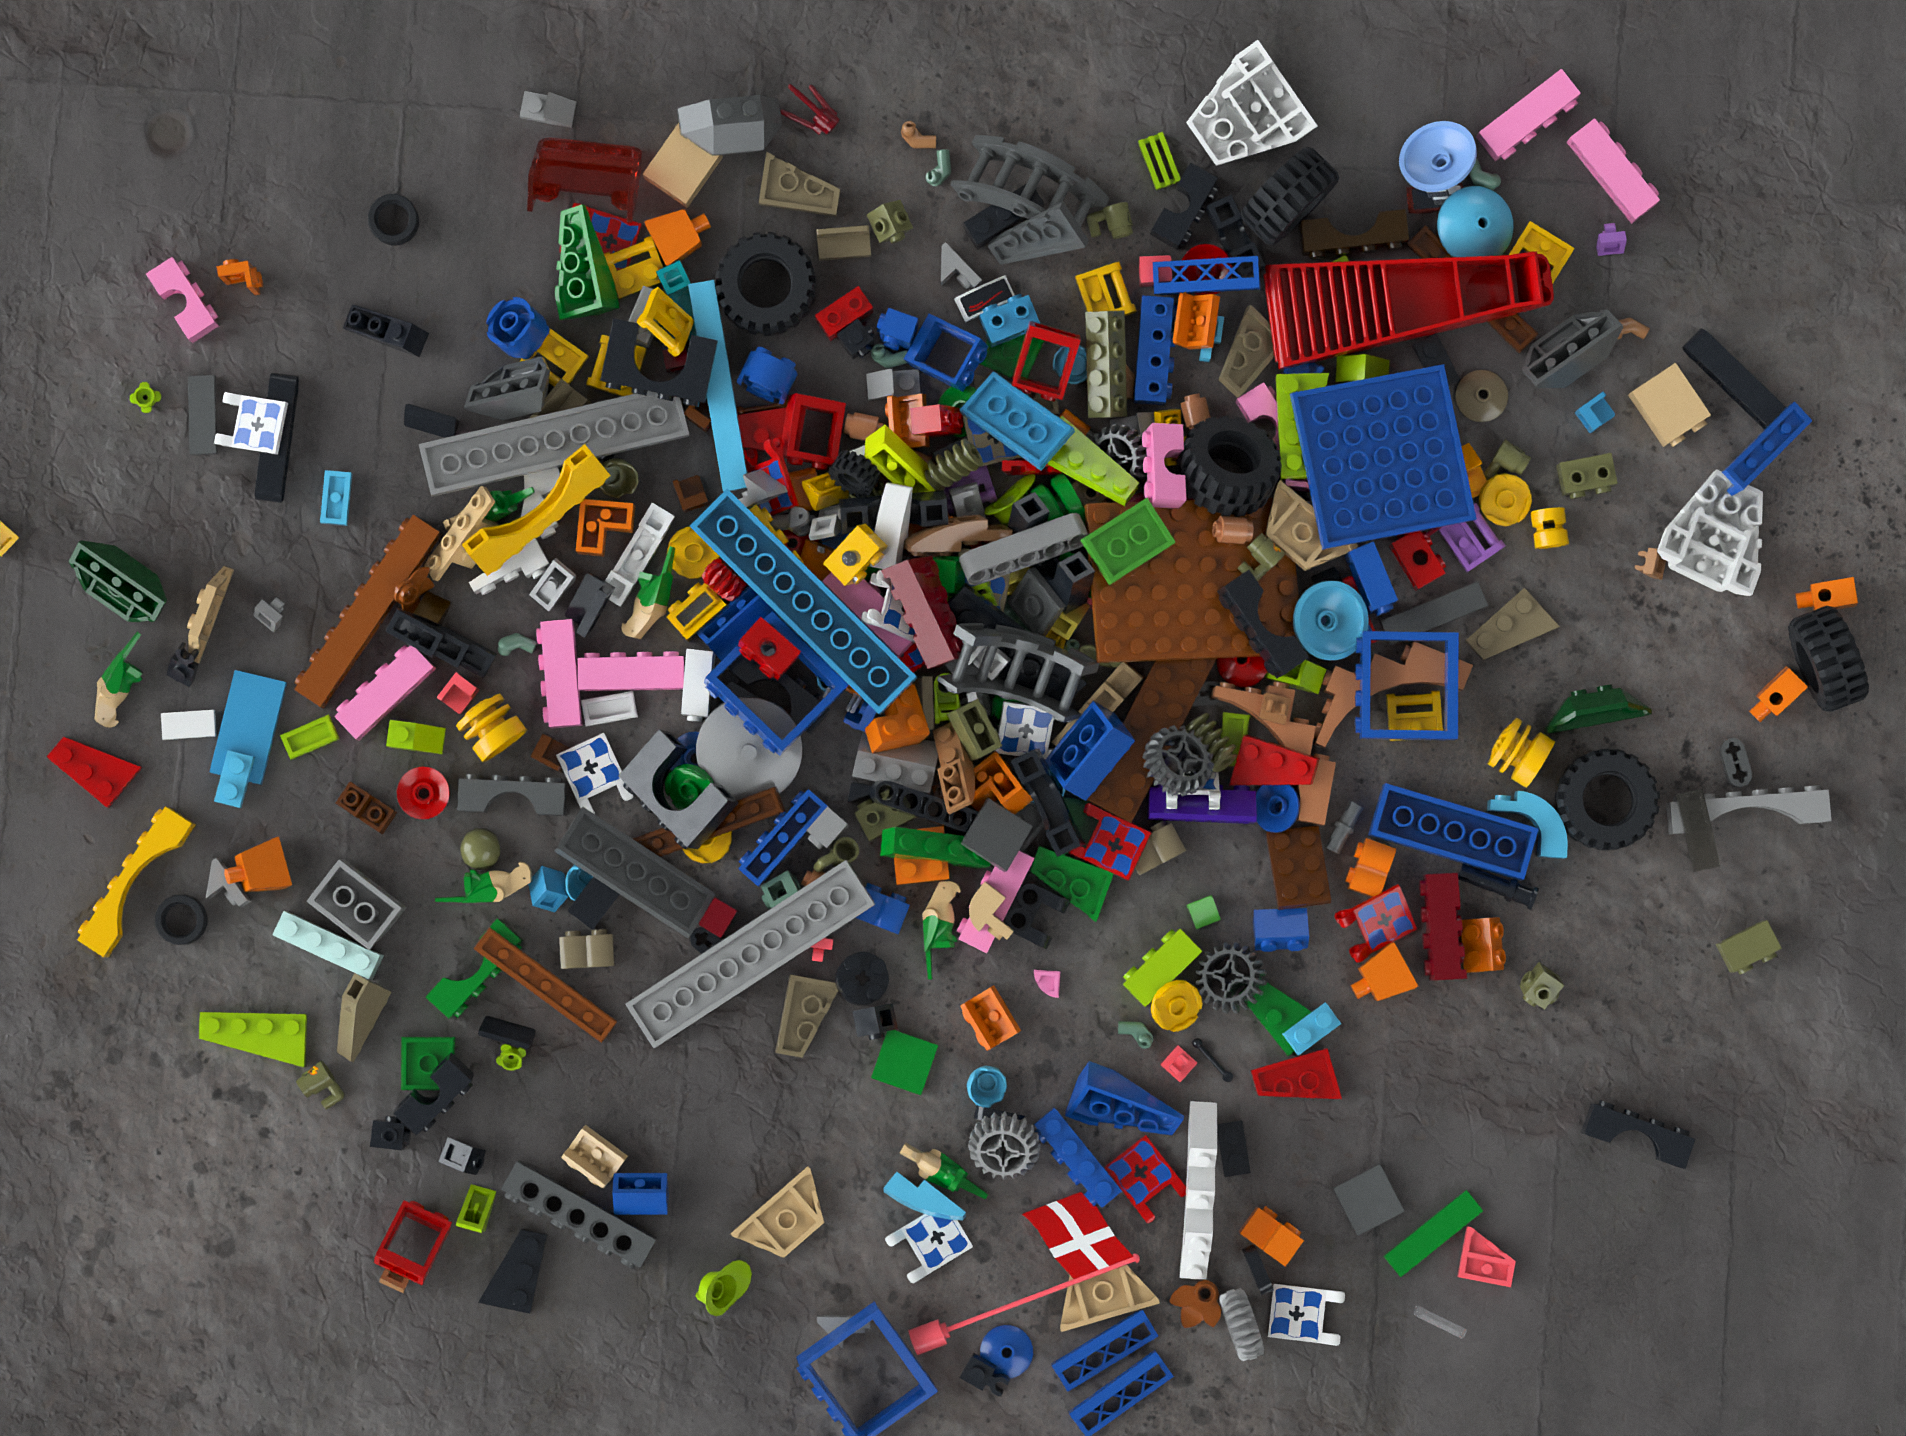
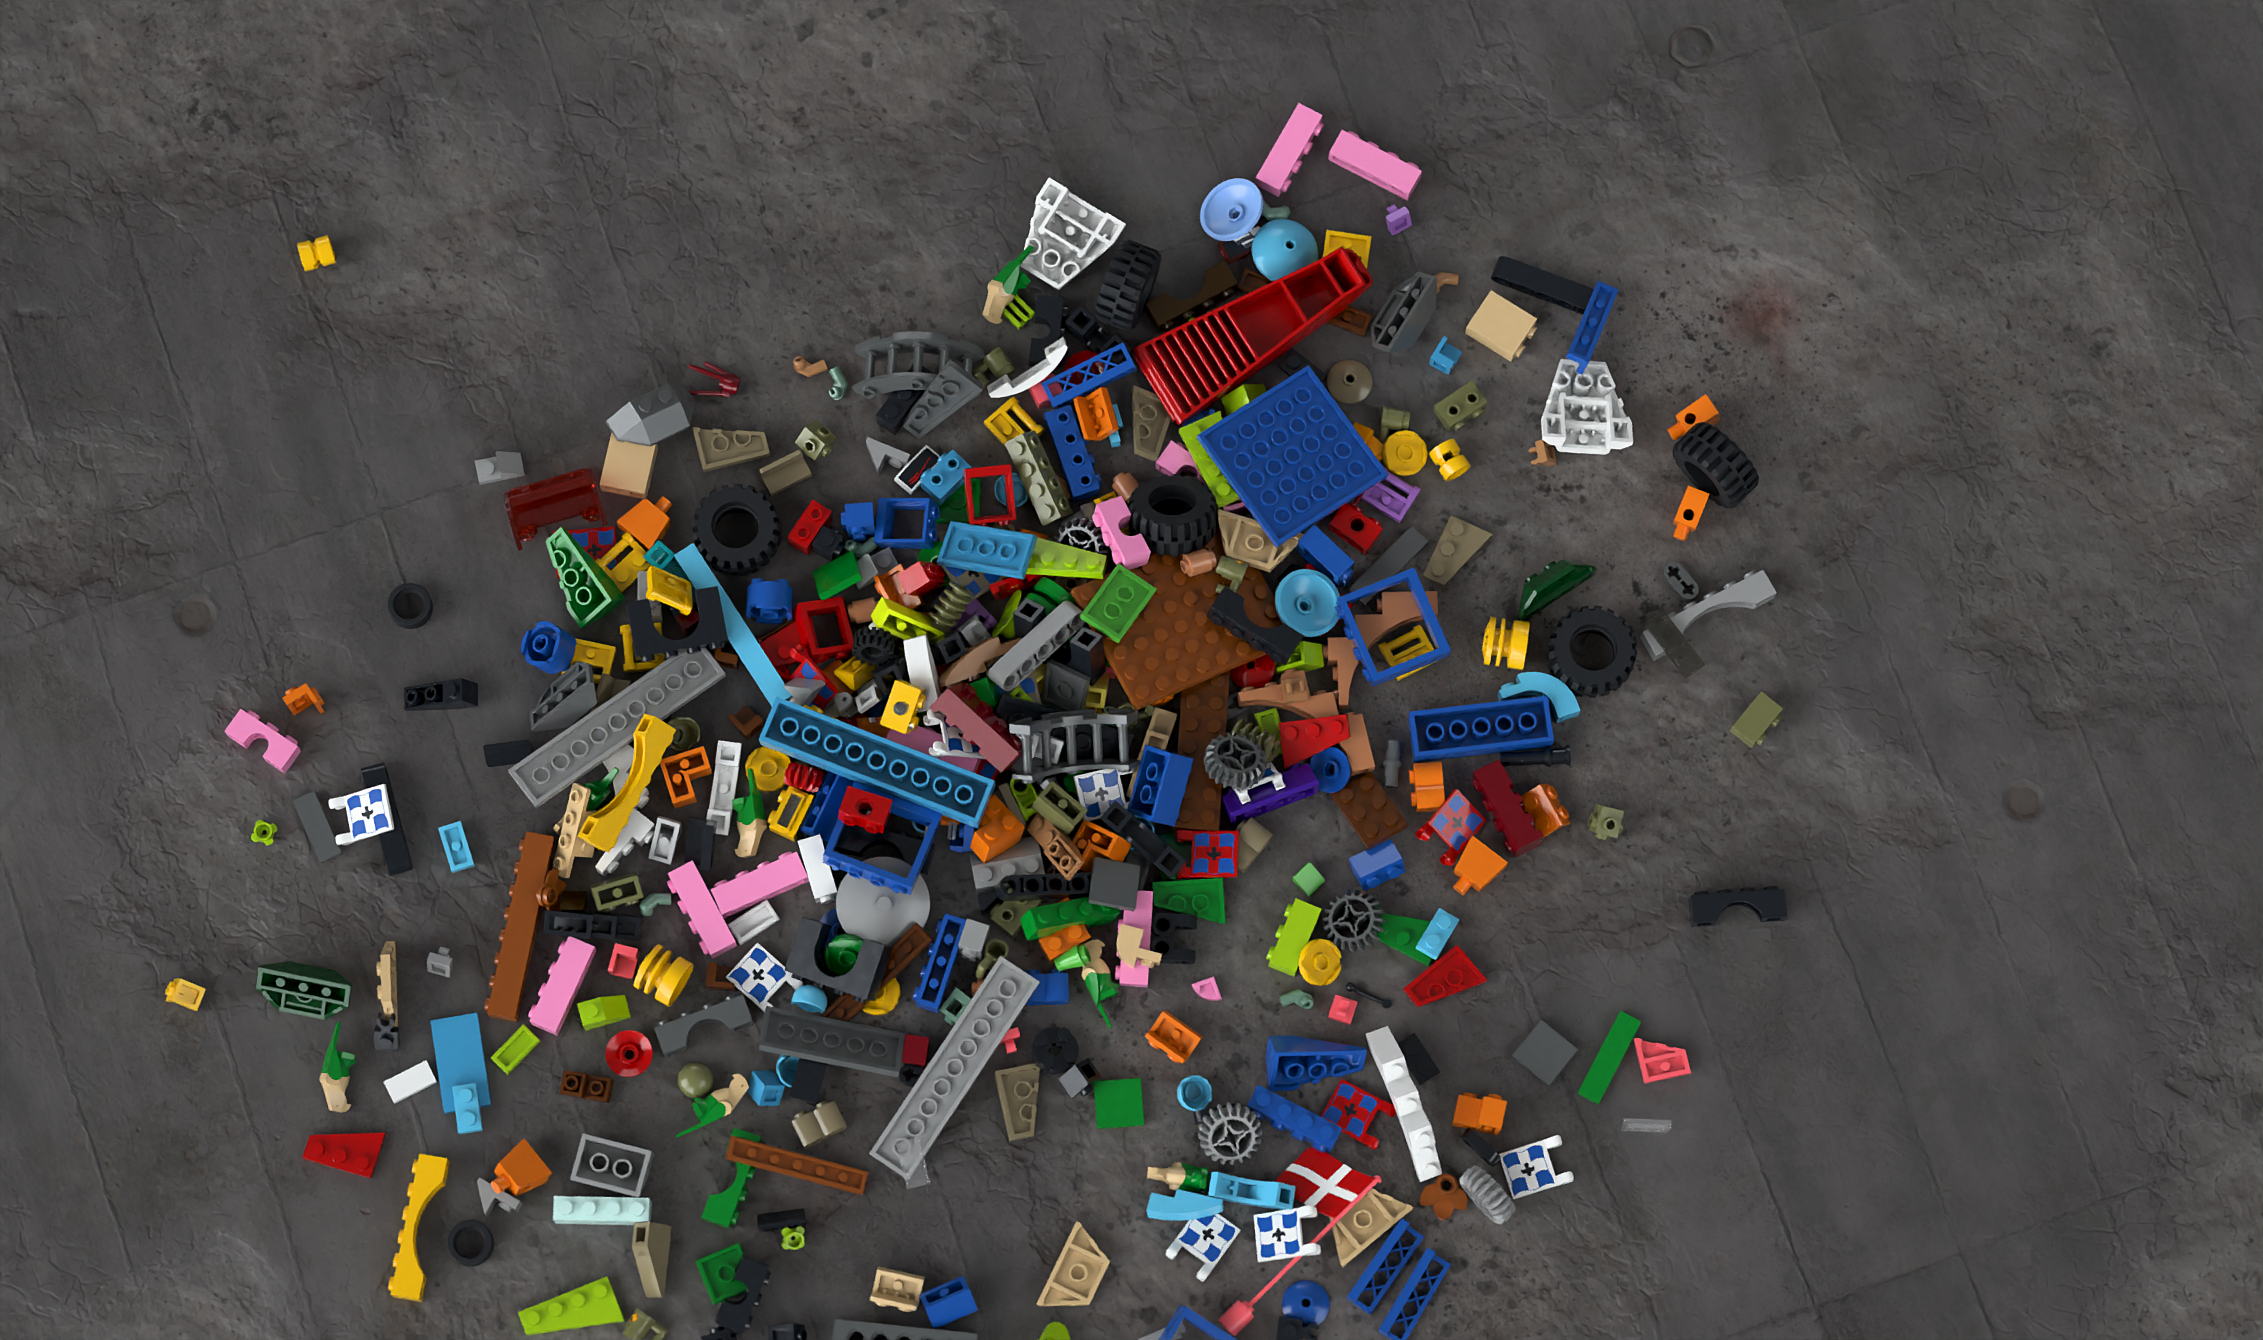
camera: 25 degrees left, 10 degrees down
(480, 617) = (616, 891): none -> olive brick
(633, 816) = (810, 998): none -> medium azure hair
(665, 1034) = (913, 1163): none -> clear tile
(850, 378) = (837, 575): none -> green tile
(923, 893) = (1074, 957): none -> bright green cone
(1001, 1215) = (1251, 1192): none -> medium azure arch
(1011, 1272) = (1281, 1234): none -> white flag
(1114, 250) = (1006, 387): none -> white slope
(1160, 139) = (1005, 287): none -> animal

